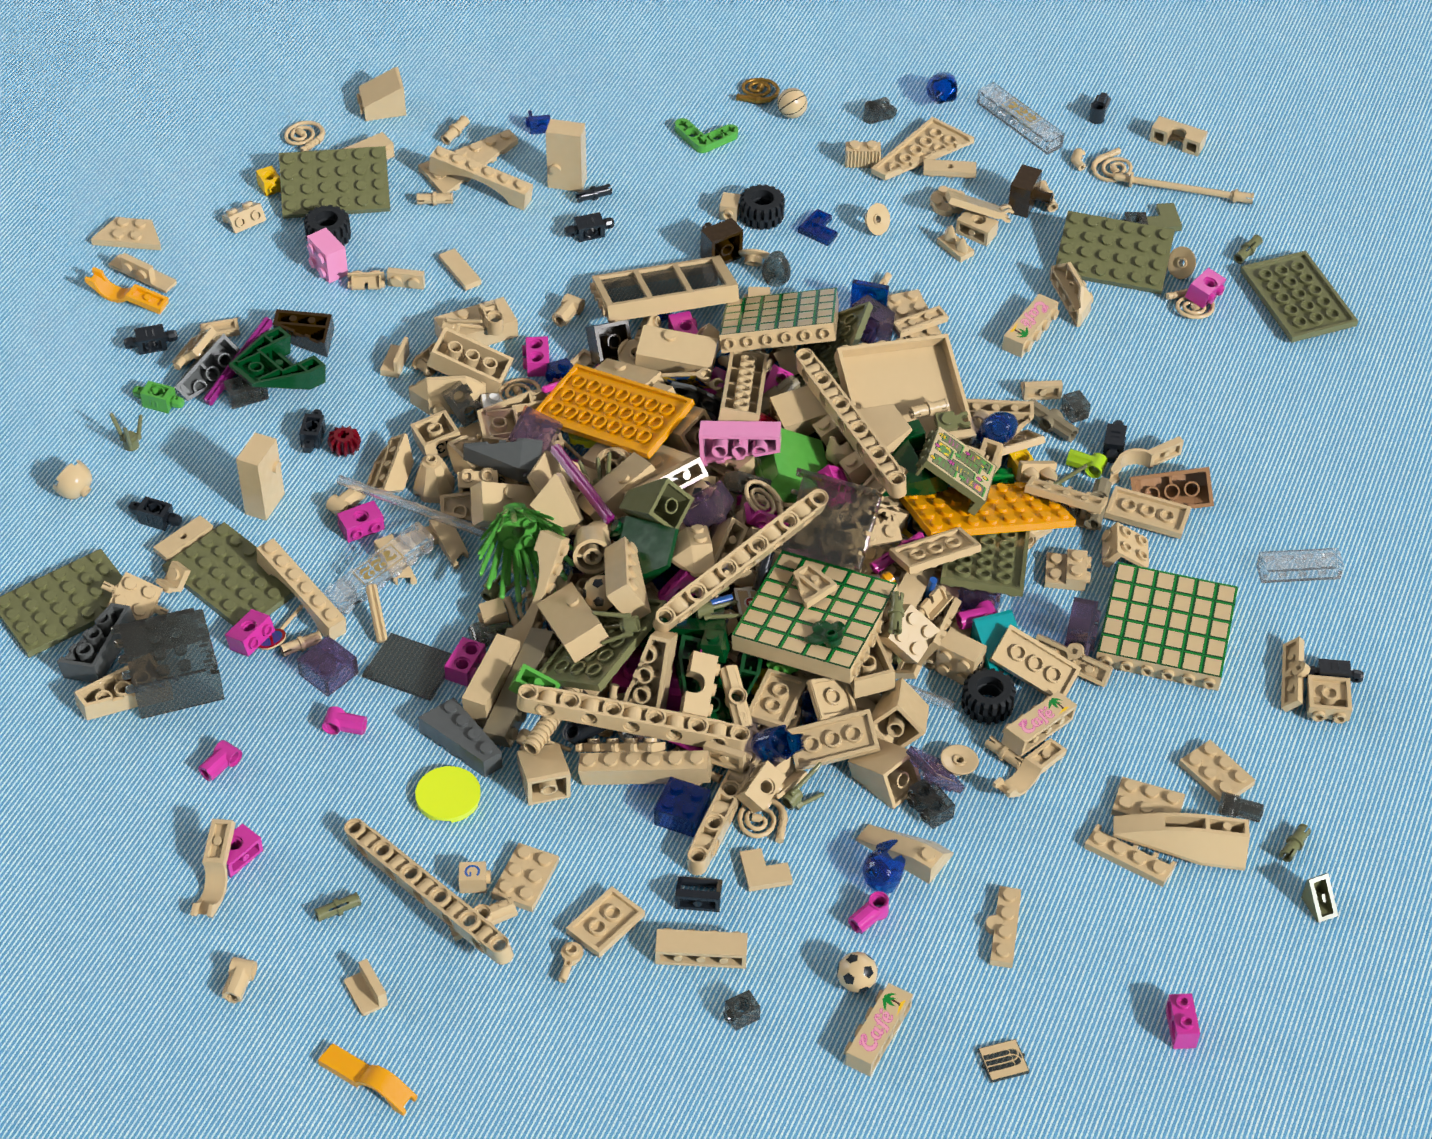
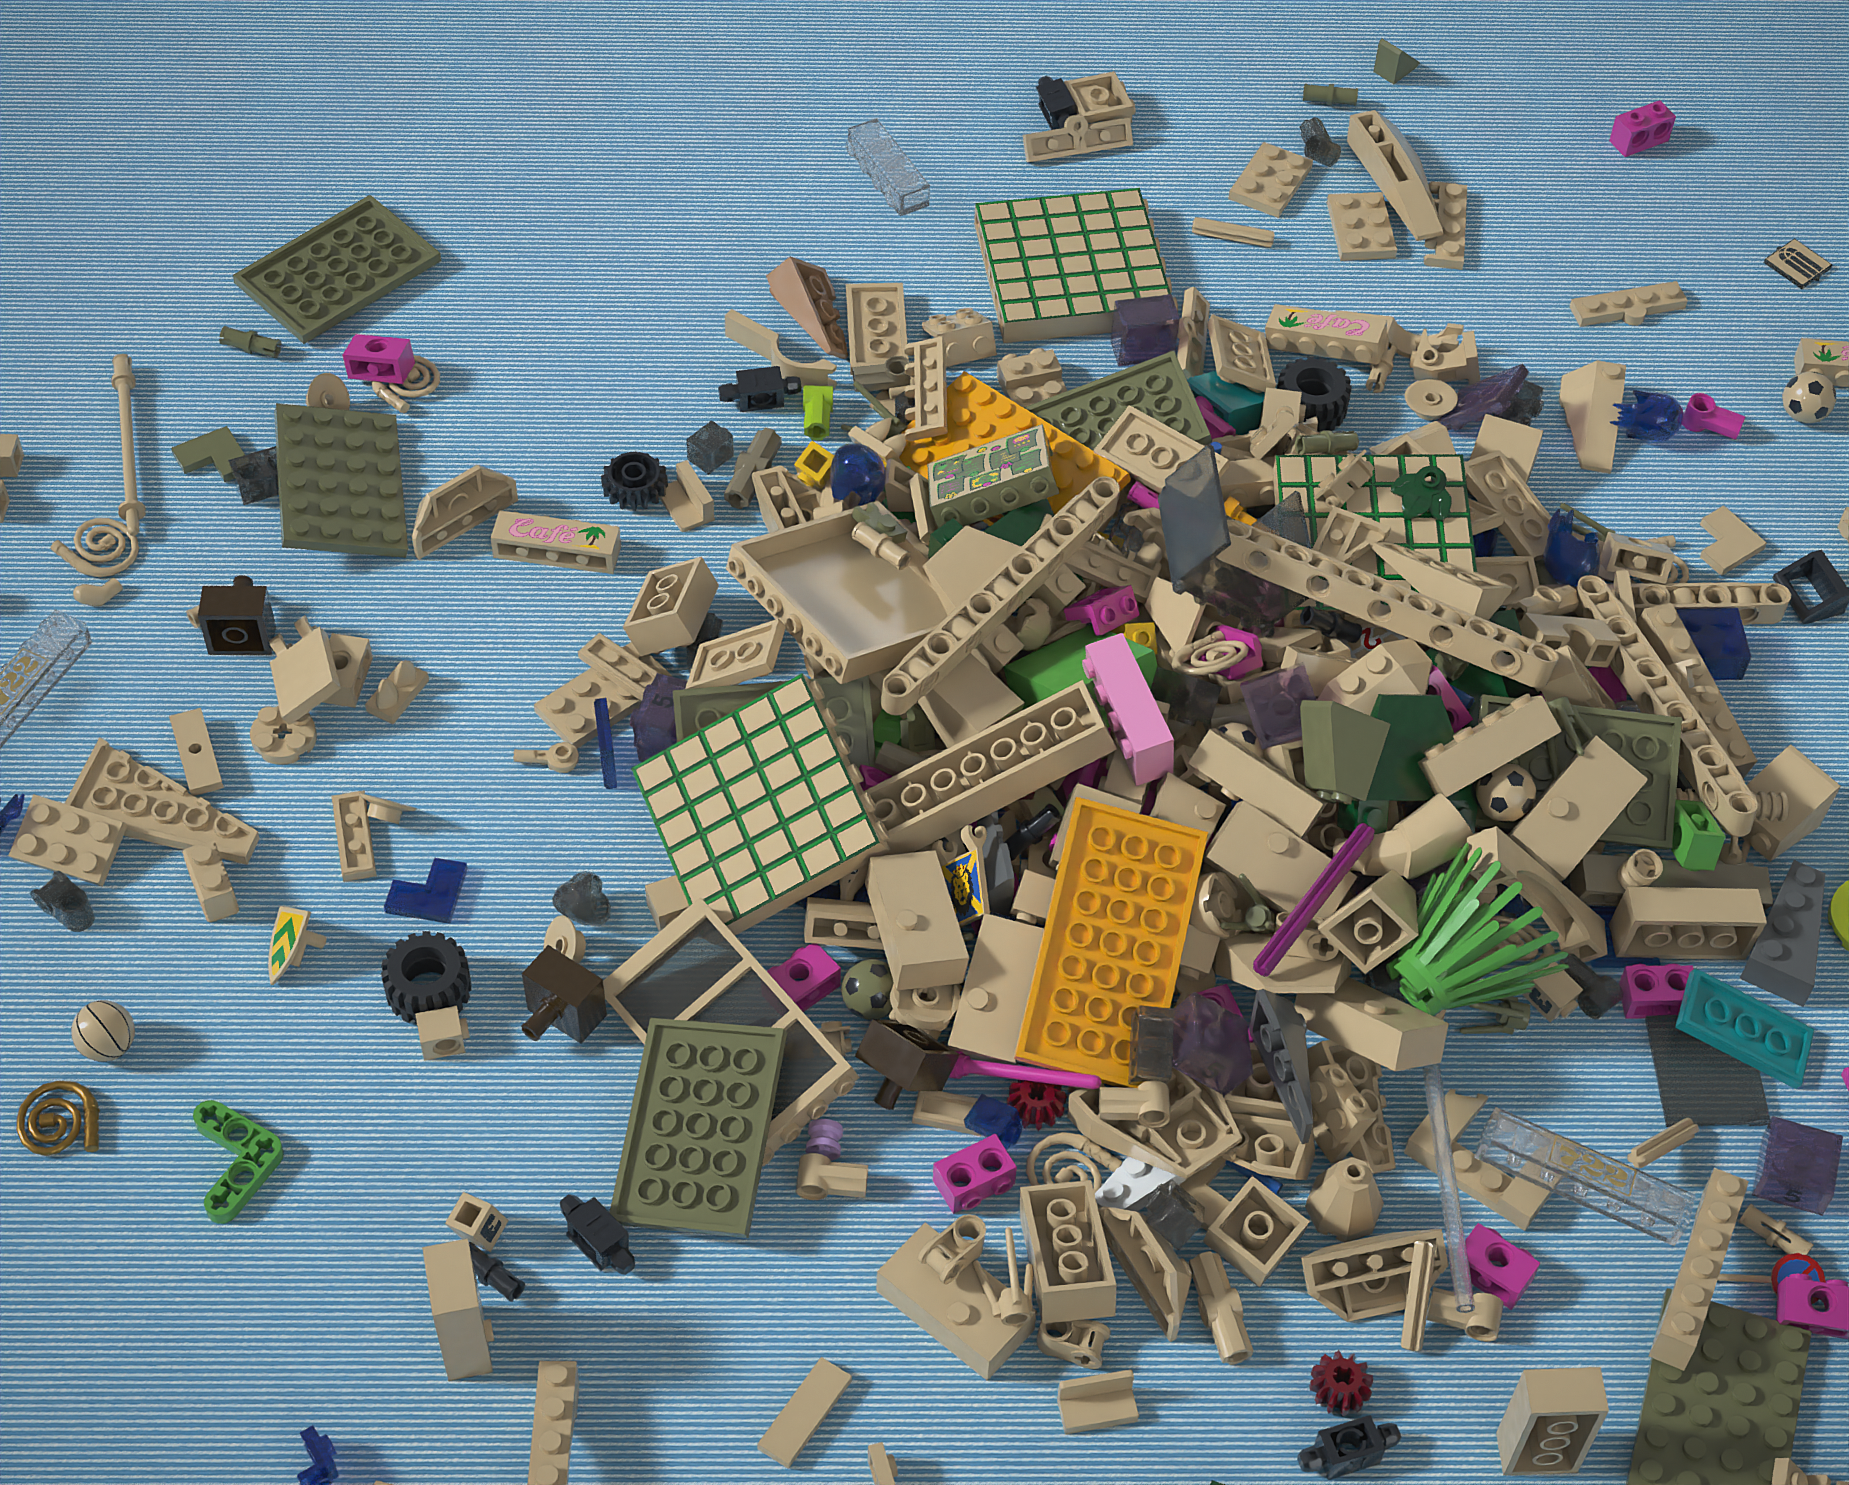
camera: 115 degrees left, 5 degrees up
(366, 477) = (1418, 1295): none -> tan axle
(405, 415) = (1220, 1308): none -> tan piece
(417, 682) = (1745, 1028): none -> teal tile
(525, 649) = (1640, 869): none -> tan wheel
(526, 396) = (1146, 1104): none -> tan piece
(549, 404) = (1151, 1045): none -> clear smoke brick
(589, 312) = (825, 1138): none -> lavender wheel
(617, 189) = (476, 1221): none -> tan brick
(617, 262) = (698, 1127): none -> olive plate
(749, 617) = (1438, 580): none -> tan wedge
(813, 170) = (290, 940): none -> shield
(852, 593) = (1354, 471): none -> tan hinge
(859, 209) = (353, 836): none -> tan tile
(876, 328) = (737, 656): none -> tan plate
(914, 116) = (68, 840): none -> tan plate
(932, 611) = (1266, 438): none -> tan plate
(963, 346) = (671, 607): none -> tan brick
(982, 775) = (1446, 366): none -> tan tile
(1026, 423) = (814, 465): none -> yellow brick
(1063, 366) = (634, 480): none -> black gear
(1169, 727) = (1233, 232): none -> tan axle

